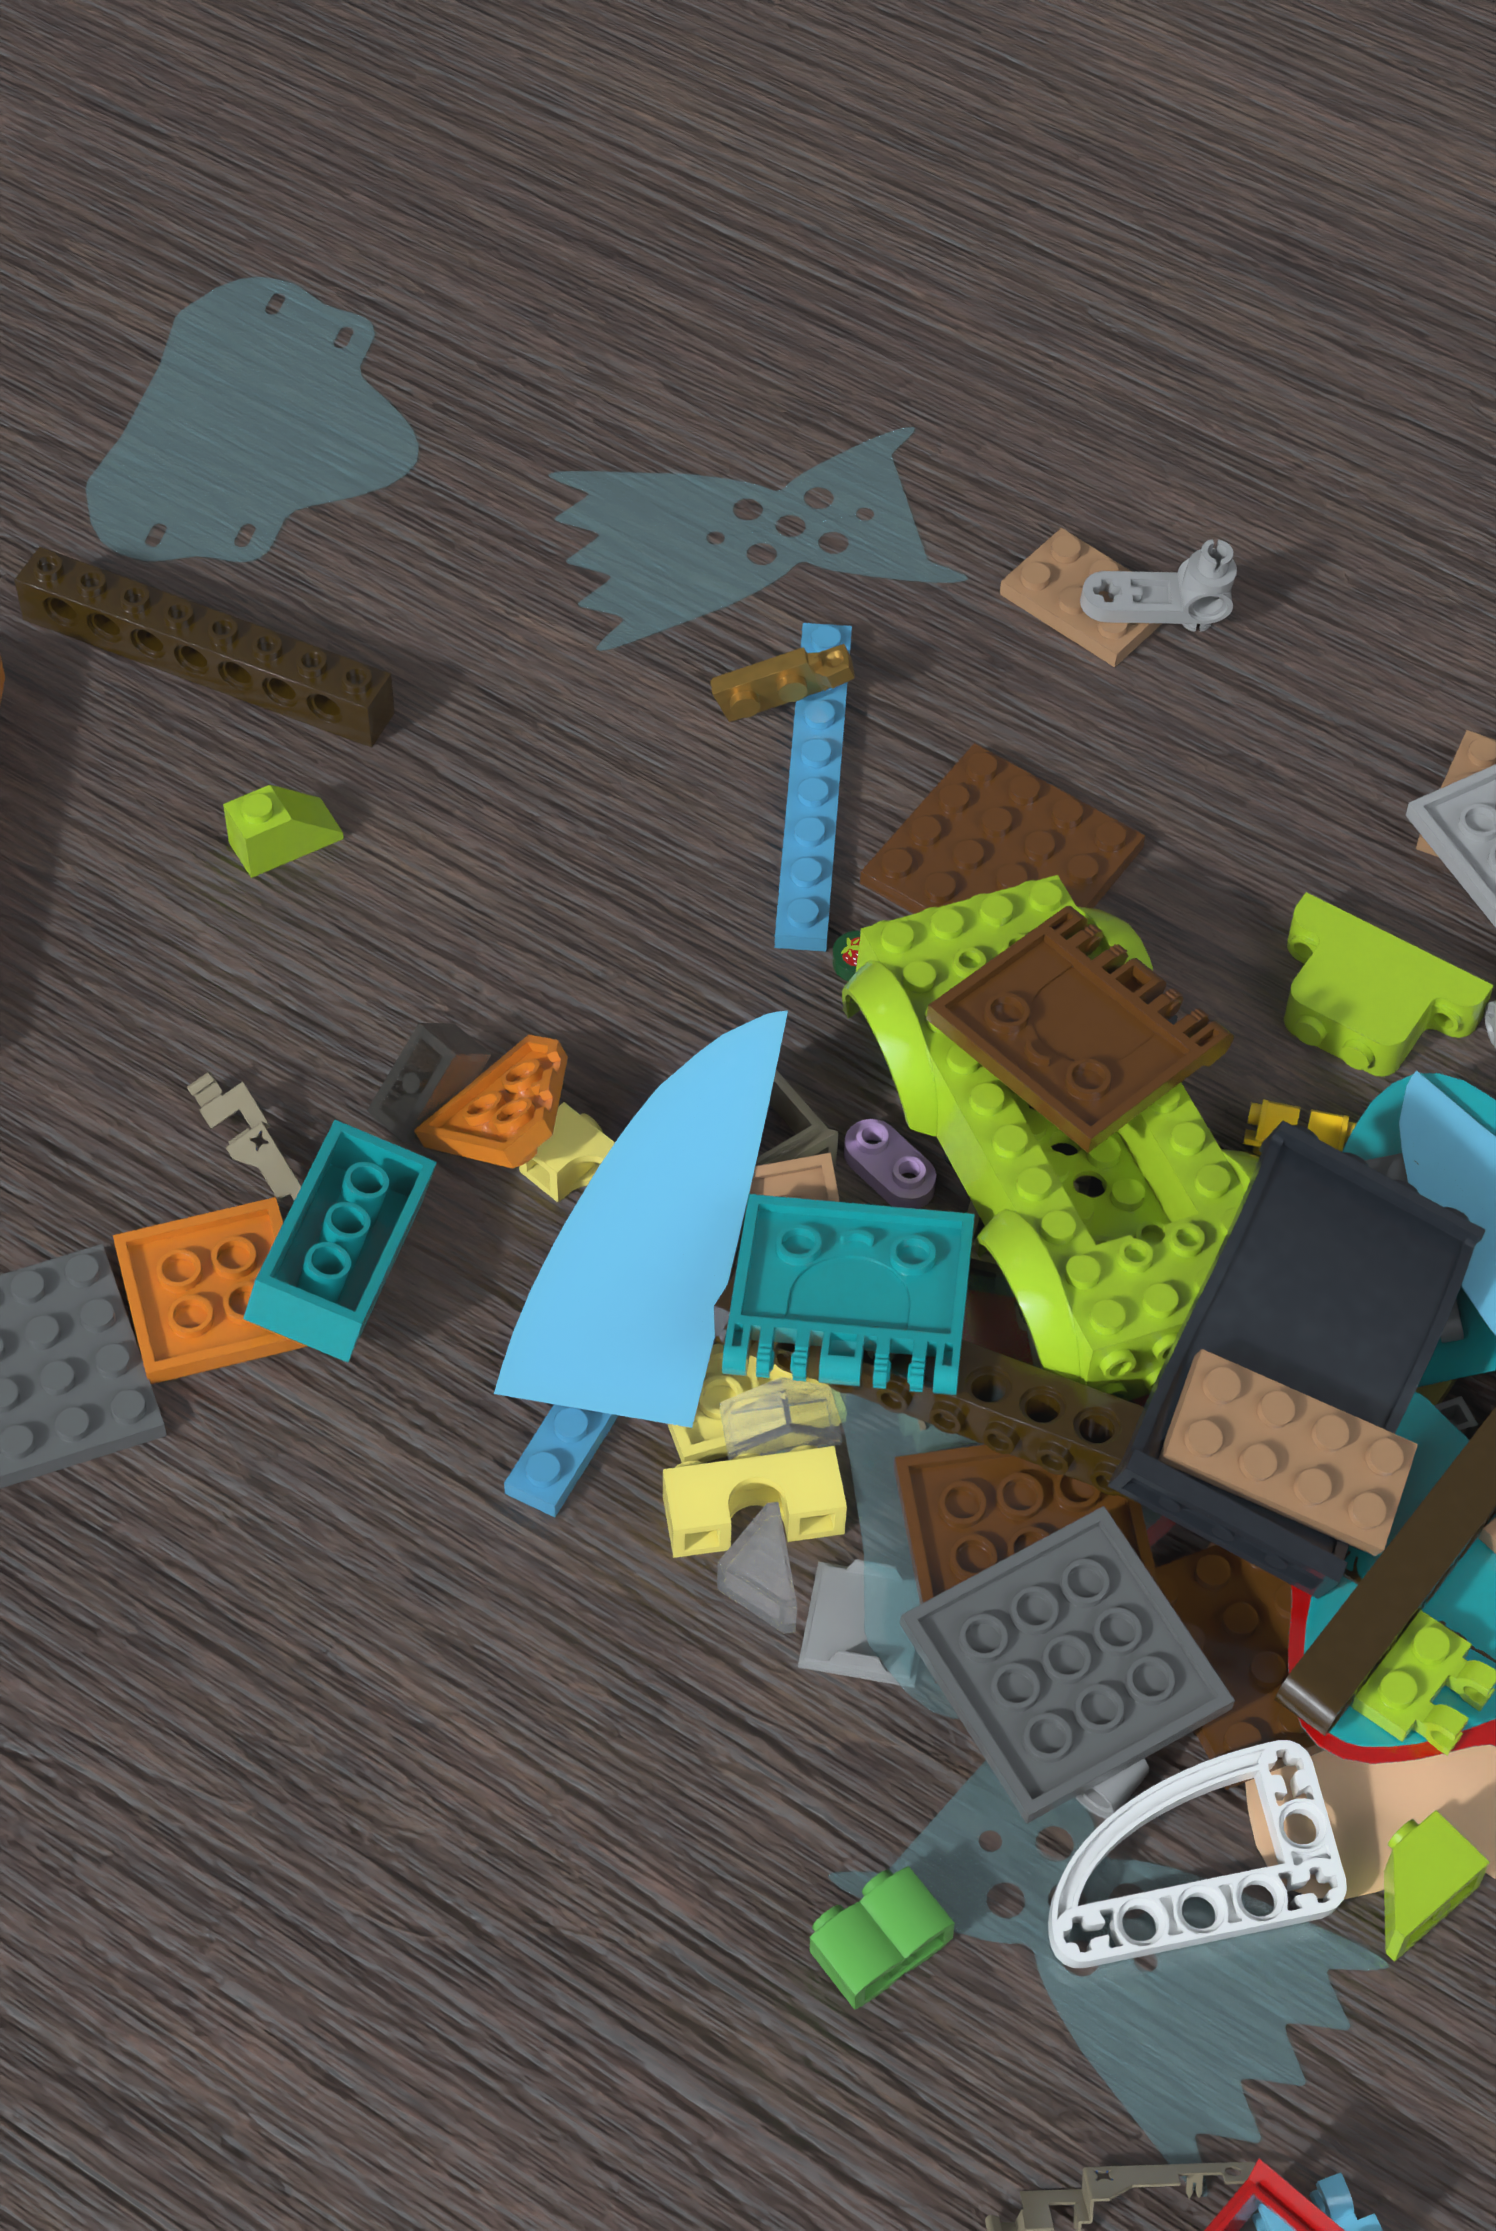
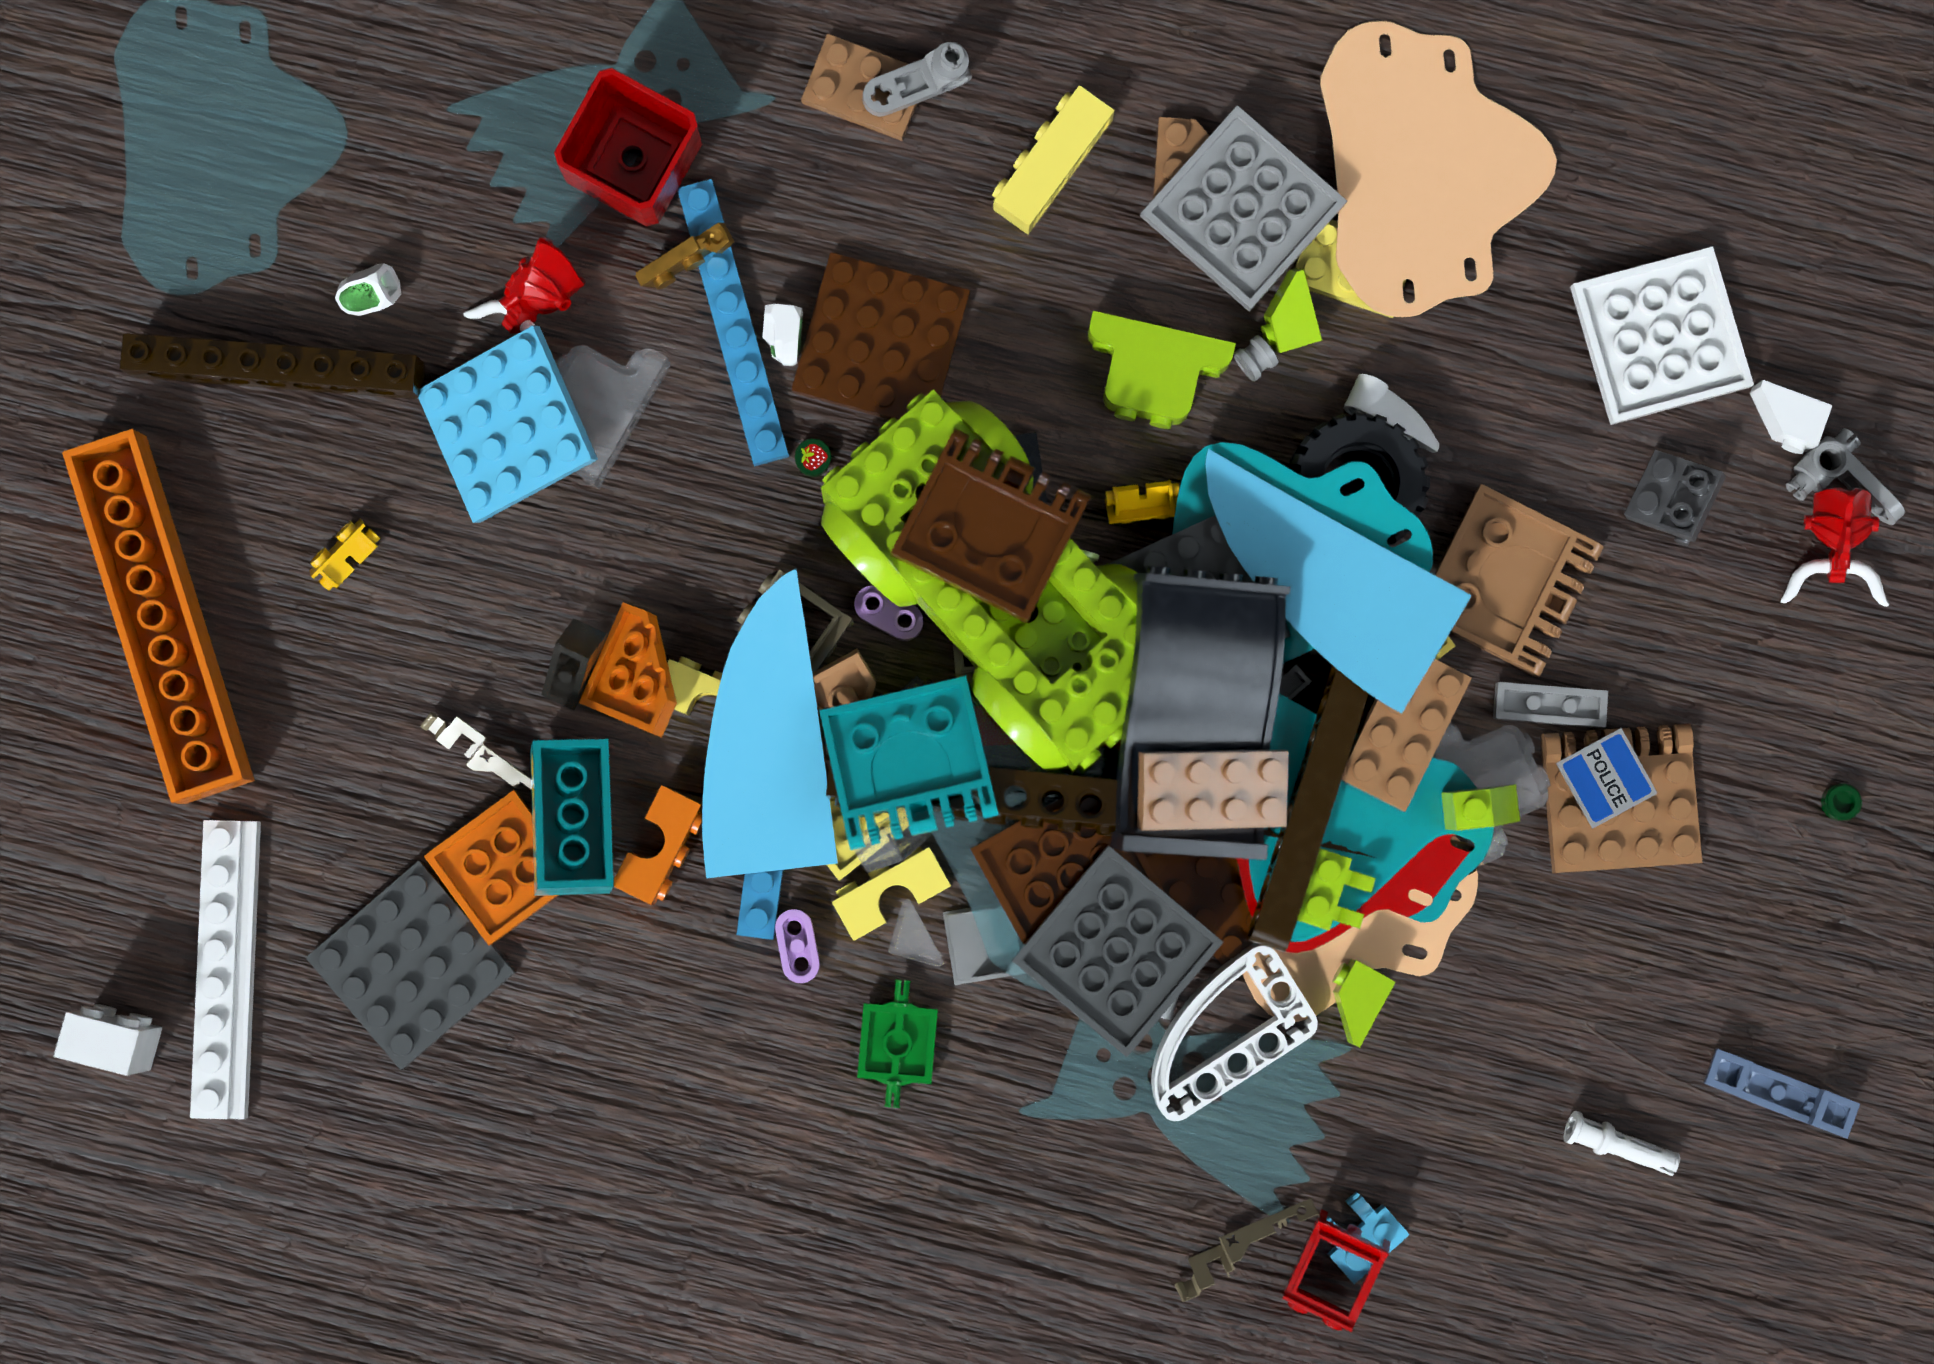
camera: 20 degrees left, 30 degrees up
(166, 872) = (332, 563): none -> yellow hinge
(277, 827) = (392, 497): lime slope -> none
(363, 606) = (369, 290): none -> white rock
(415, 1363) = (649, 877): none -> orange arch
(469, 787) = (506, 424): none -> medium azure plate
(581, 653) = (536, 288): none -> red helmet
(586, 1530) = (797, 946): none -> lavender plate
(602, 808) = (610, 399): none -> clear brick
(681, 1706) = (897, 1043): none -> green plate
(762, 514) = (621, 117): none -> red plate
(879, 802) = (783, 332): none -> white rock
(880, 1935) = (1062, 1146): bright green brick -> none
(1307, 731) = (1053, 158): none -> light yellow brick

